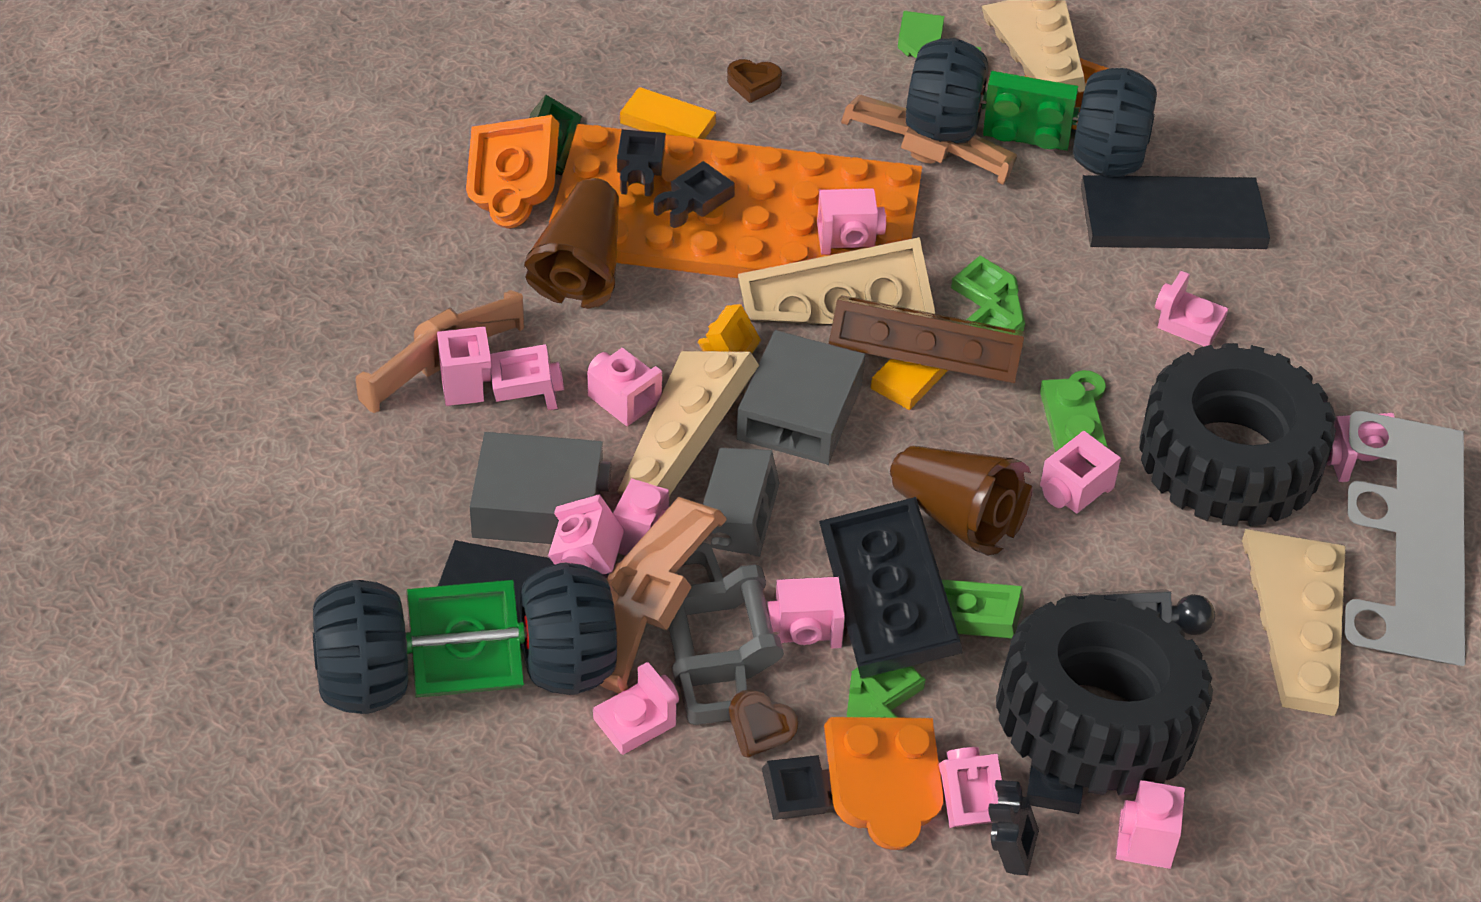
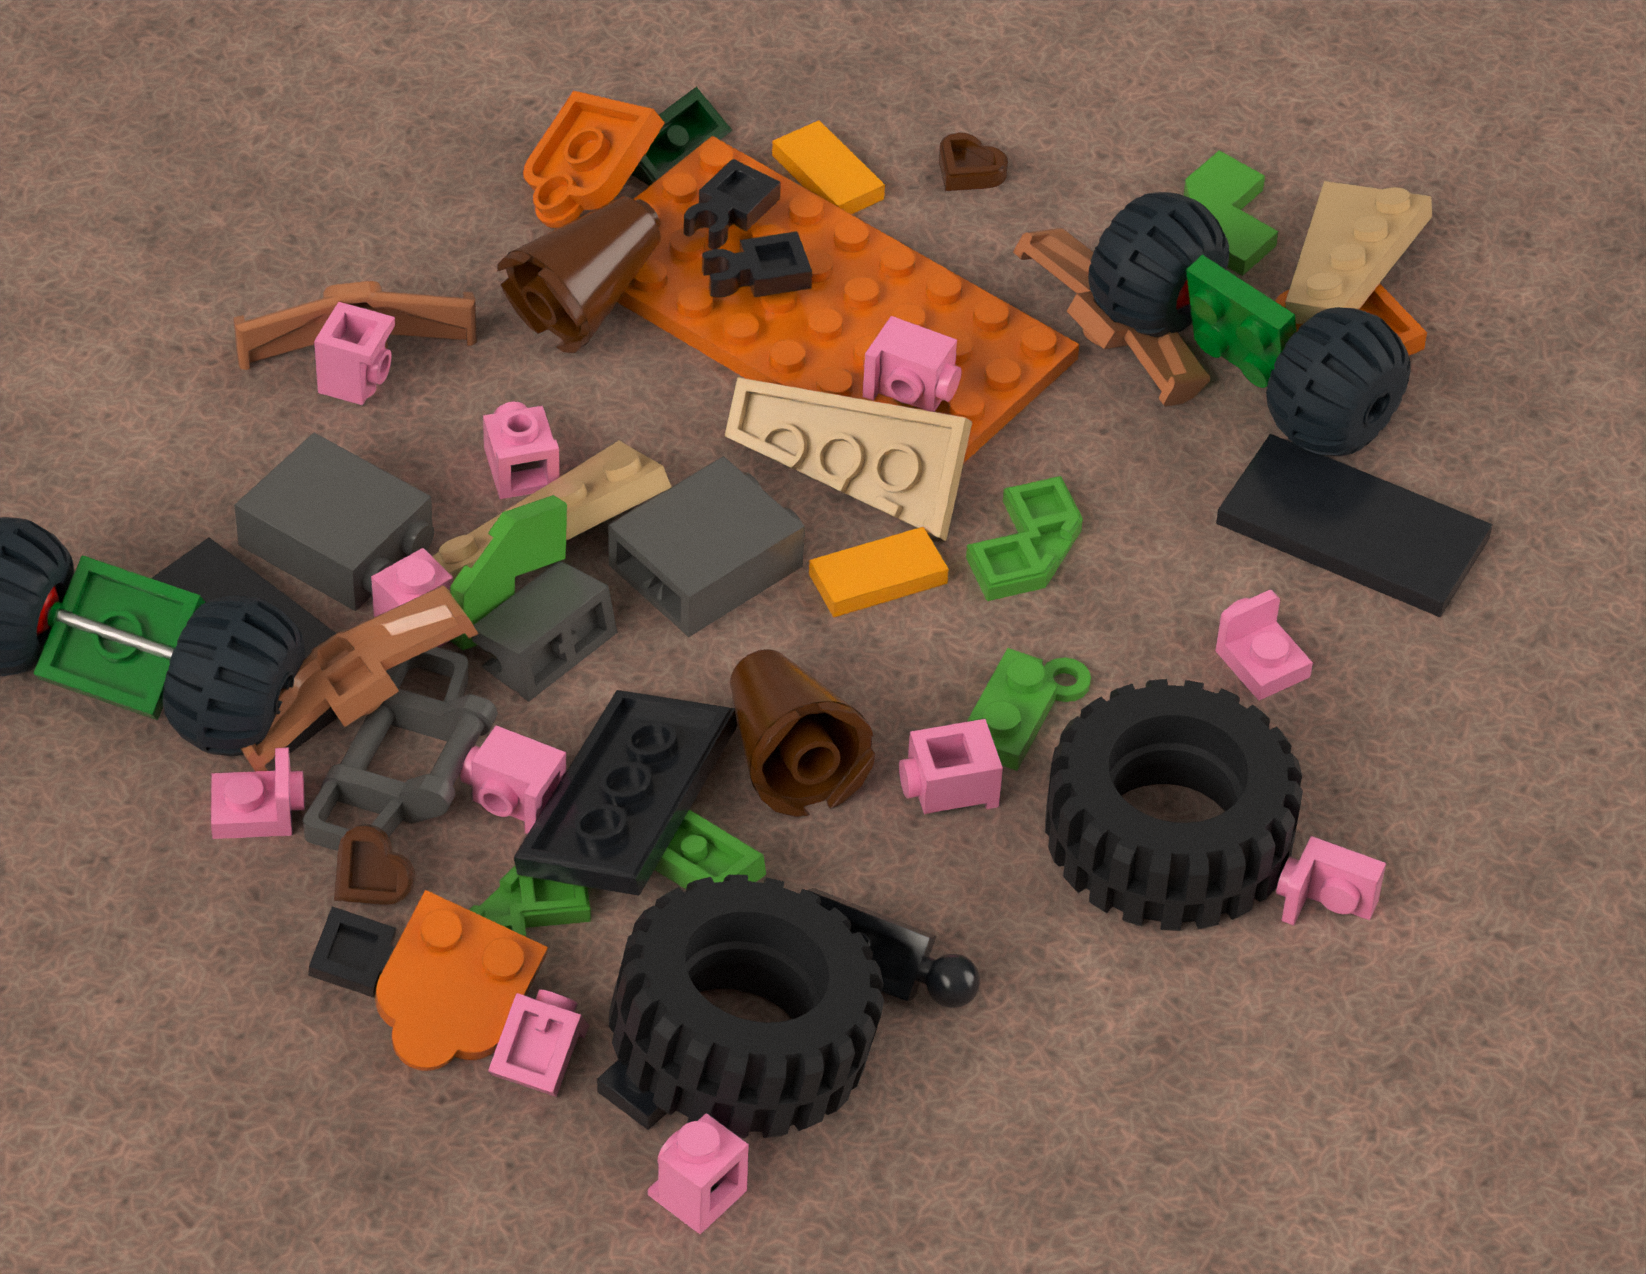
camera: 30 degrees right, 0 degrees up
(526, 374) = (419, 392): bright pink bracket -> none
(587, 535) = (327, 590): bright pink brick -> none
(702, 442) = (521, 543): none -> bright green tile
(731, 332) = (683, 444): light orange tile -> none
(926, 338) = (899, 539): reddish brown fence -> none
(1013, 827) = (545, 1102): black plate -> none
(1302, 612) = (1094, 1037): tan wing -> none
(1429, 531) = (1318, 1024): light grey piece -> none

